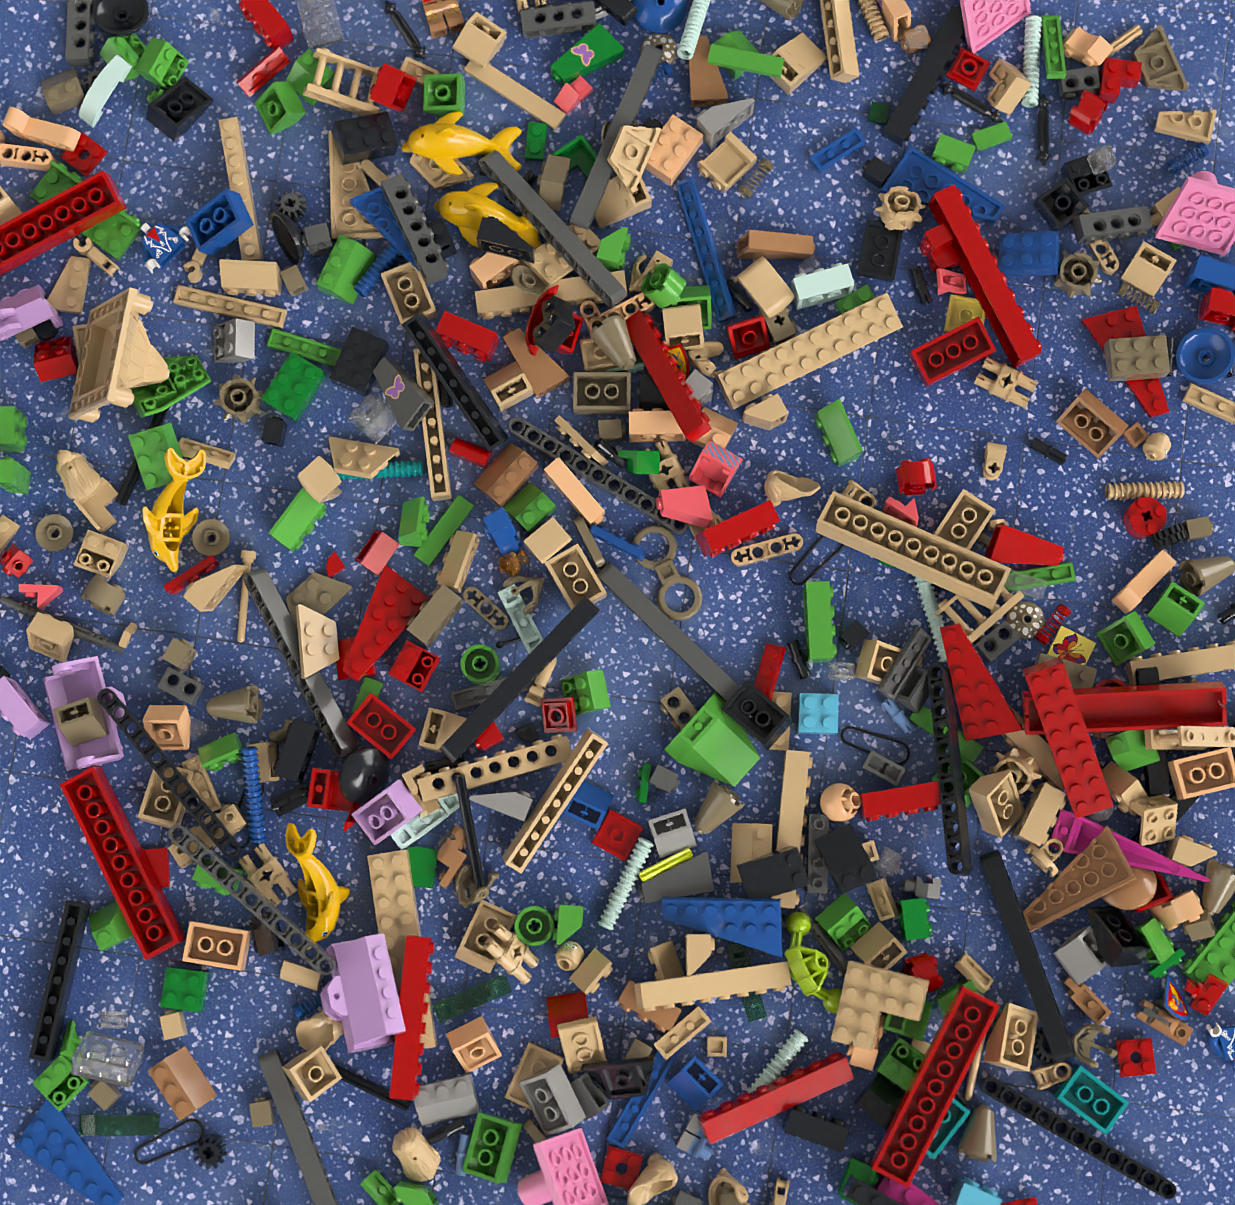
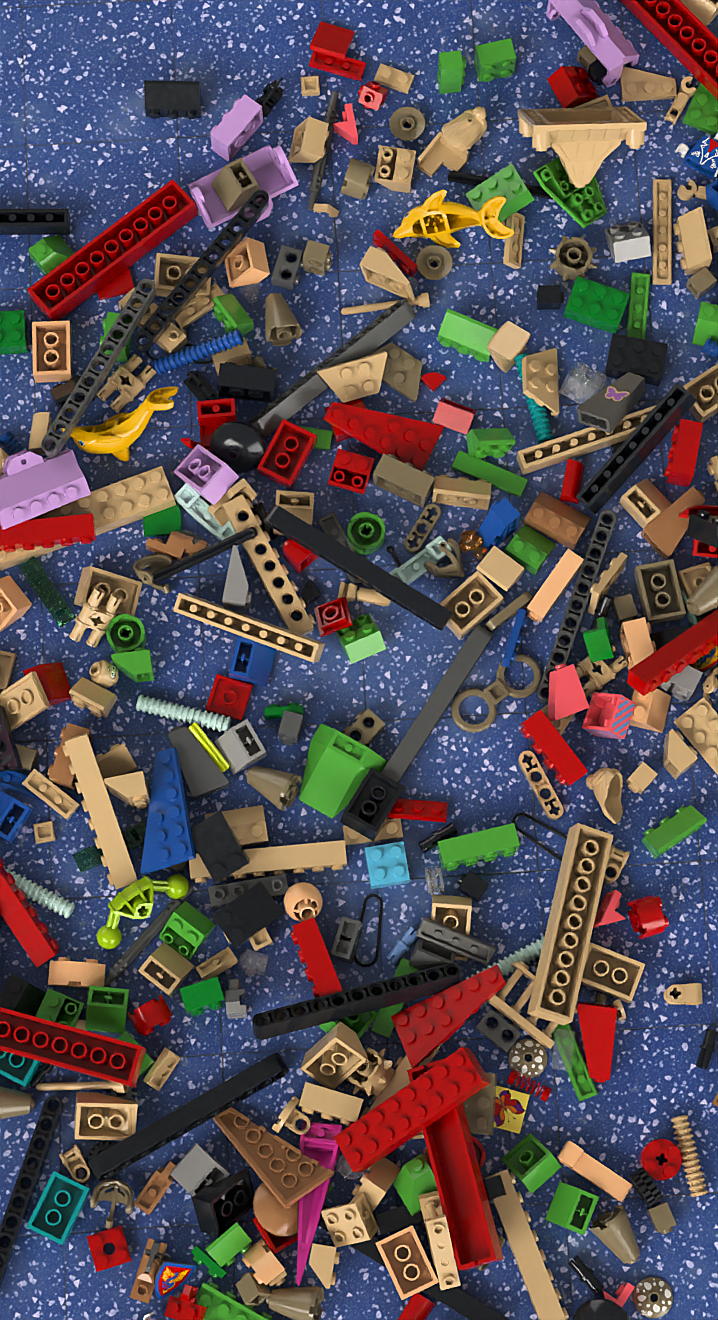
camera: 75 degrees right, 5 degrees down
(780, 453) = (641, 778): none -> tan brick
(867, 994) = (119, 961): tan piece -> none

